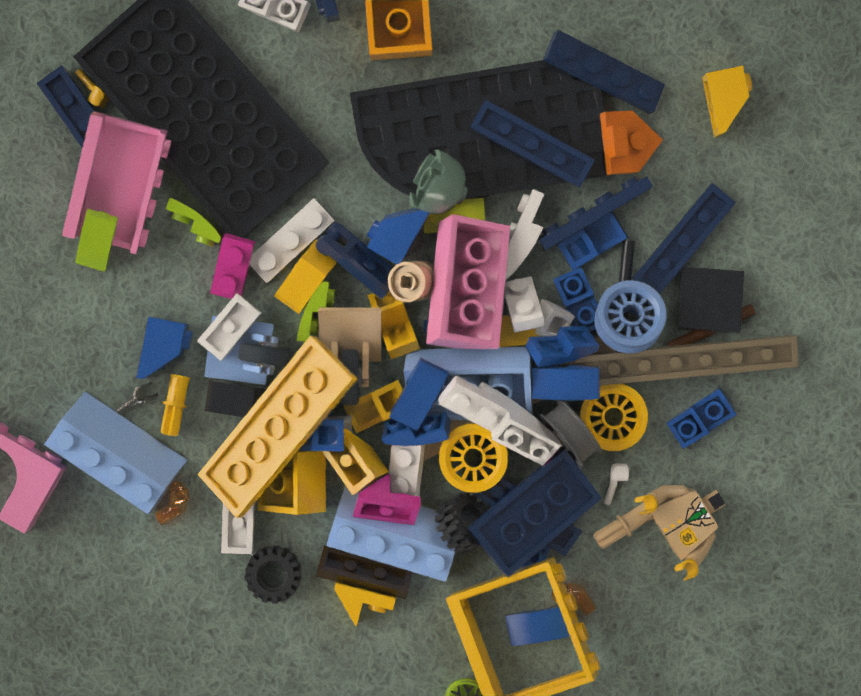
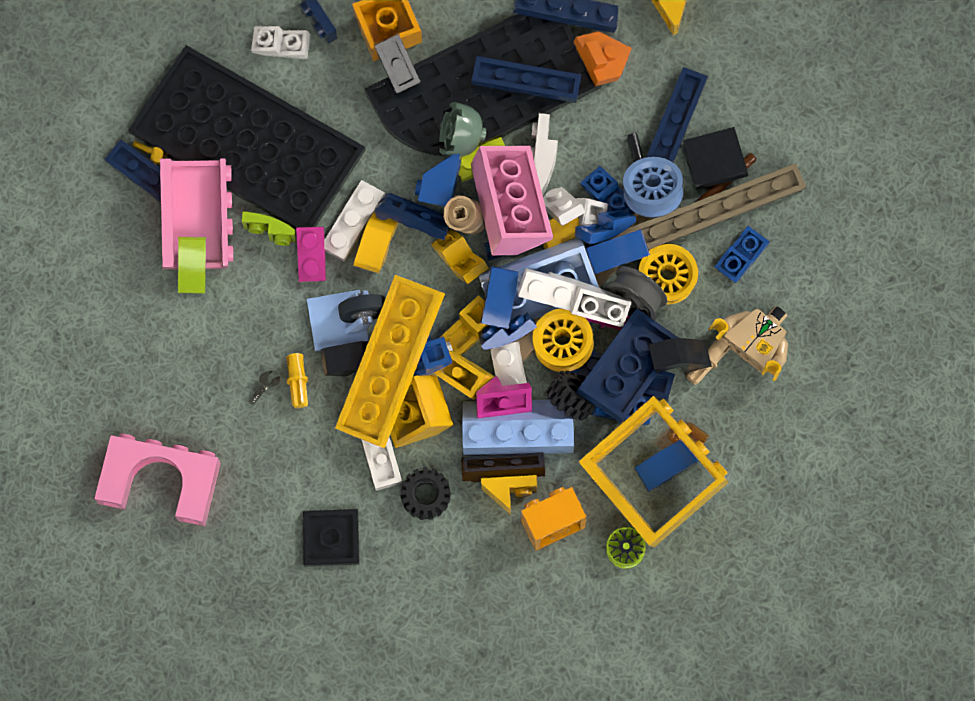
camera: 10 degrees left, 15 degrees down
(116, 452) = (259, 435): light blue slope -> none
(159, 587) = (331, 537): none -> black tile
(162, 345) = (272, 334): blue slope -> none
(177, 503) = (325, 463): clear orange arm -> none
(229, 327) = (324, 300): white plate -> none
(322, 298) = (392, 258): lime slope -> none
(352, 337) = (432, 269): tan plate -> none
(392, 79) = (396, 63): none -> plate
(397, 651) = (553, 517): none -> light orange brick
(592, 240) = (602, 143): blue slope -> none
(593, 519) = (680, 352): none -> black slope
(605, 205) = (601, 113): dark blue plate -> none
(618, 472) = (688, 320): white hand -> none

